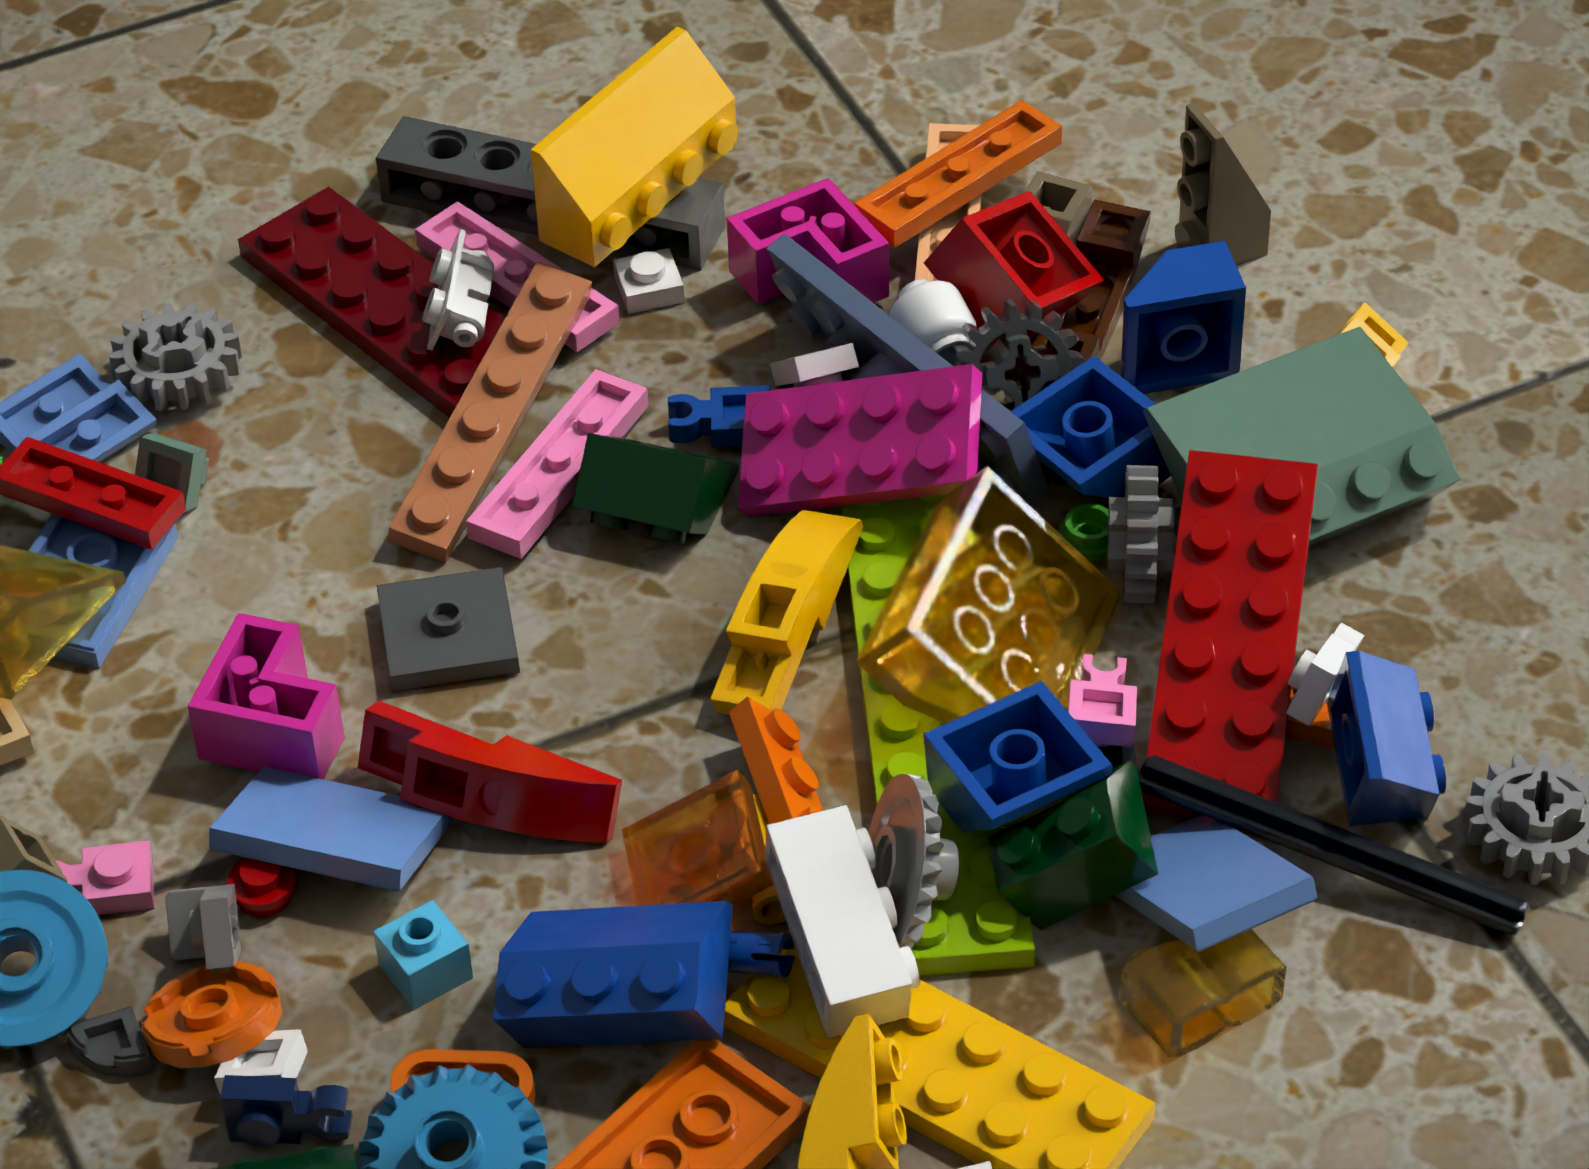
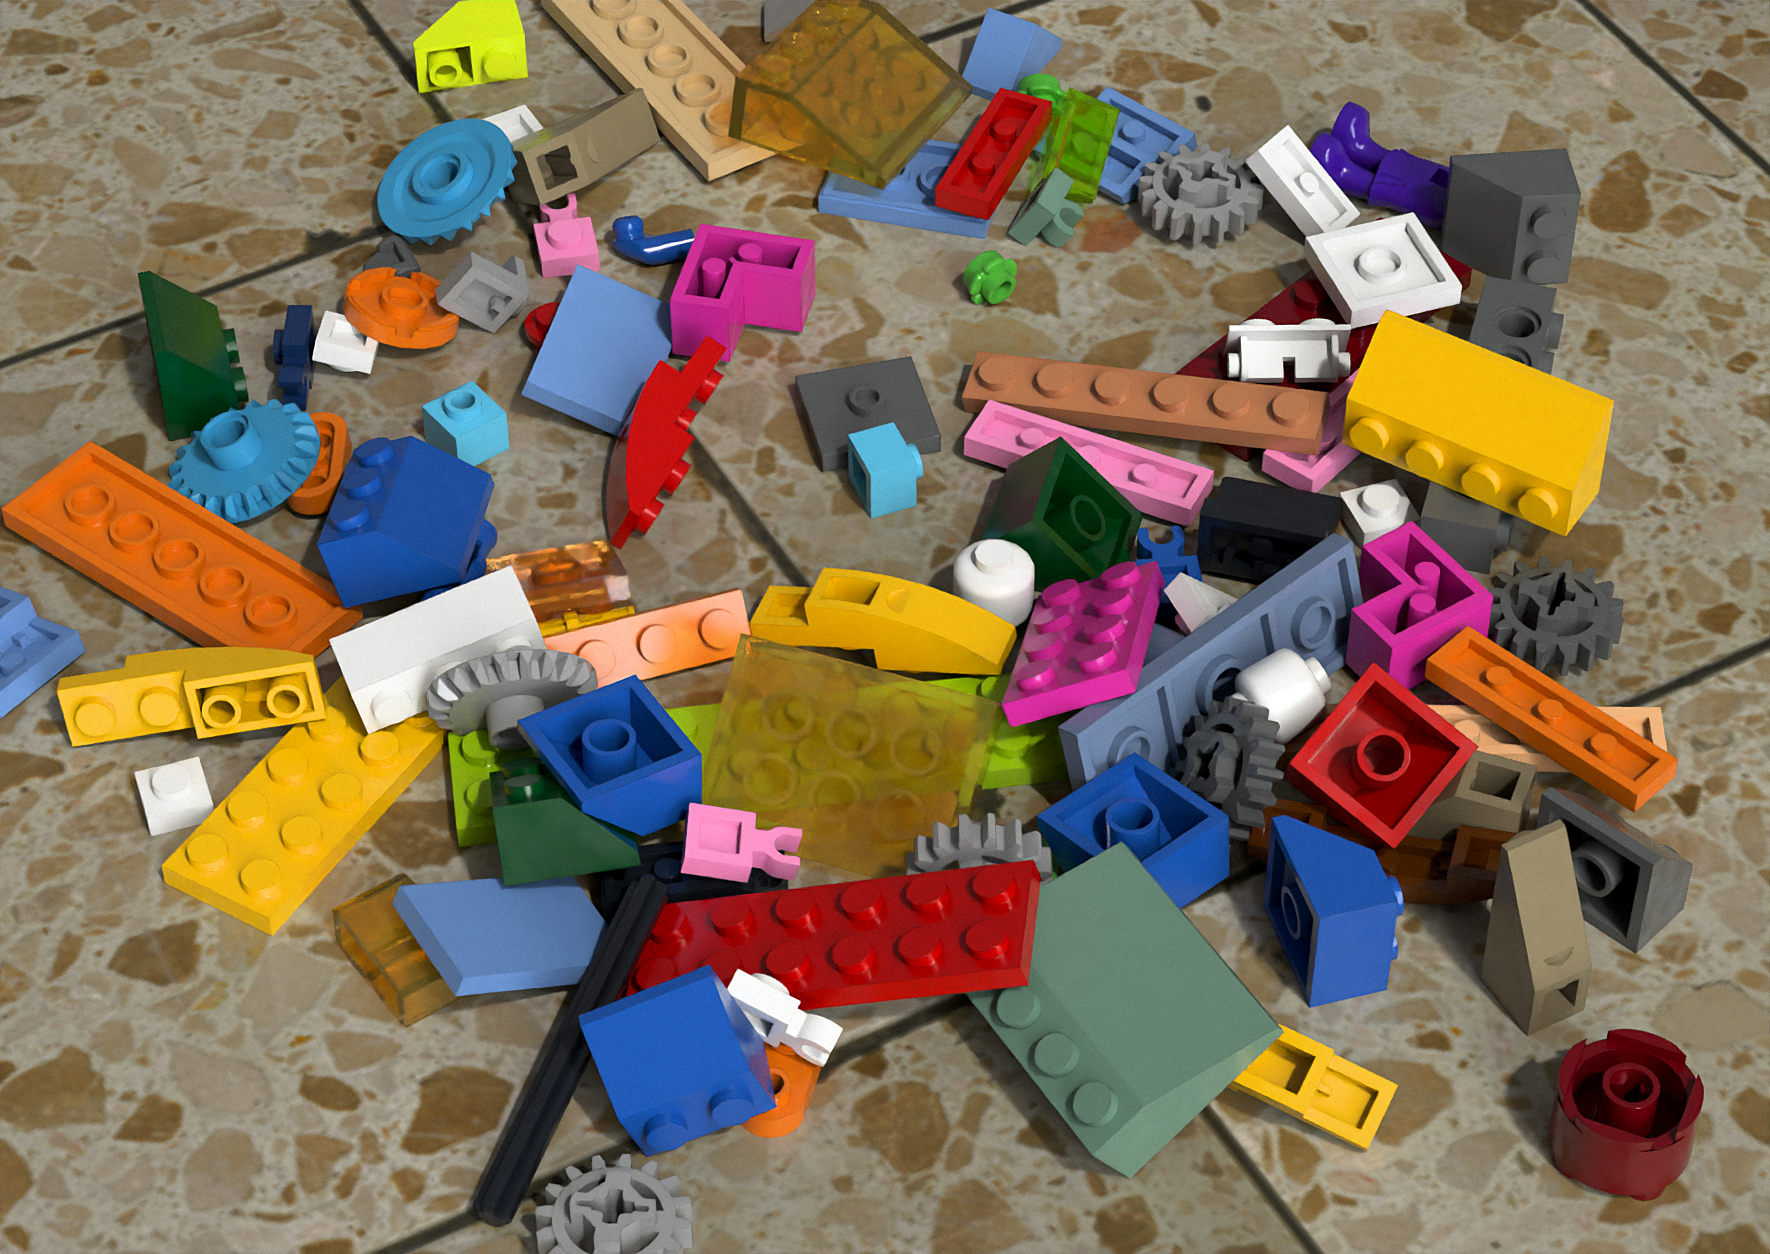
camera: 85 degrees right, 0 degrees up
(81, 431) = (1078, 143): none -> clear neon green slope
(140, 804) = (648, 248): none -> blue arm
(174, 231) = (1378, 174): none -> dark purple piece
(208, 275) = (1301, 185): none -> white plate
(265, 521) = (990, 277): none -> bright green plate
(297, 128) = (1512, 214): none -> dark grey slope
(353, 223) = (1382, 268): none -> white plate
(553, 607) = (883, 469): none -> medium azure plate
(678, 345) = (1262, 527): none -> black bracket
(738, 524) = (996, 578): none -> white head
(804, 161) = (1555, 615): none -> dark grey gear
(1132, 157) = (1622, 876): none -> dark grey slope
(1384, 183) = (1625, 1114): none -> dark red brick

